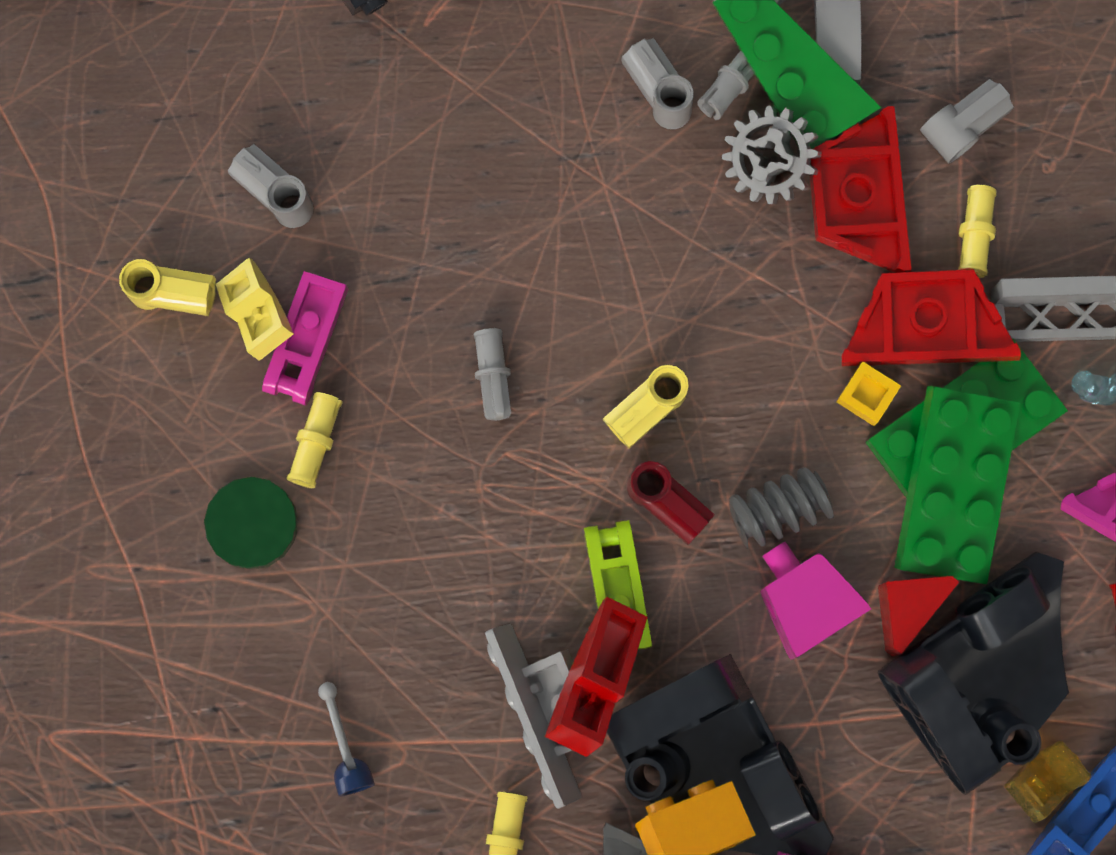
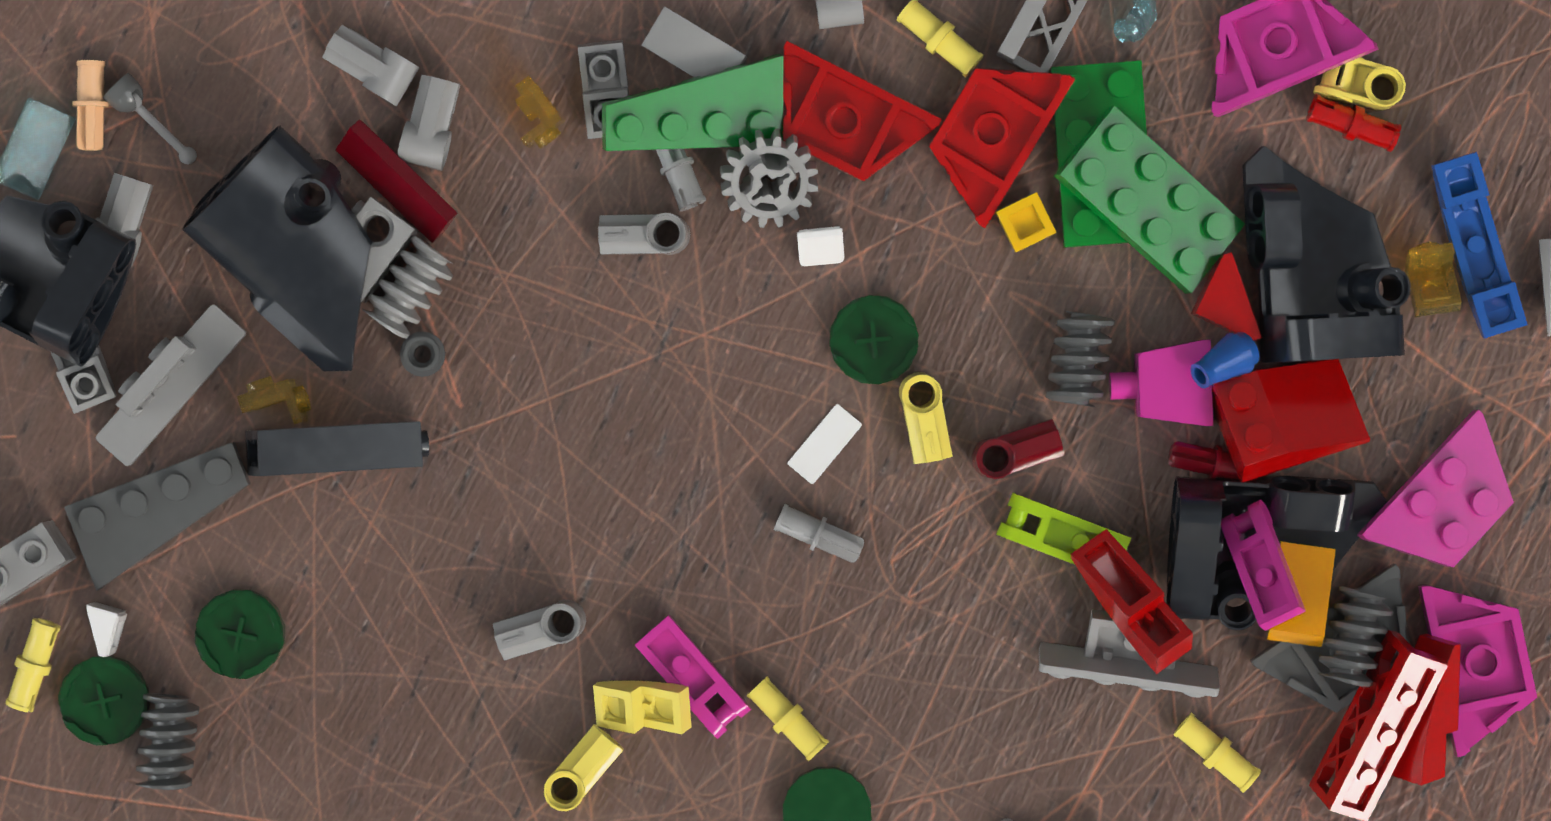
camera: 55 degrees left, 10 degrees up
(573, 338) = (824, 444): none -> white sticker
(688, 326) = (874, 339): none -> dark green tile
(699, 775) = (1262, 566): none -> dark pink plate
(741, 233) = (820, 246): none -> white slope
(763, 681) = (1203, 460): none -> dark red axle
(845, 720) = (1287, 416): none -> red slope
(865, 633) = (1226, 360): none -> blue cone

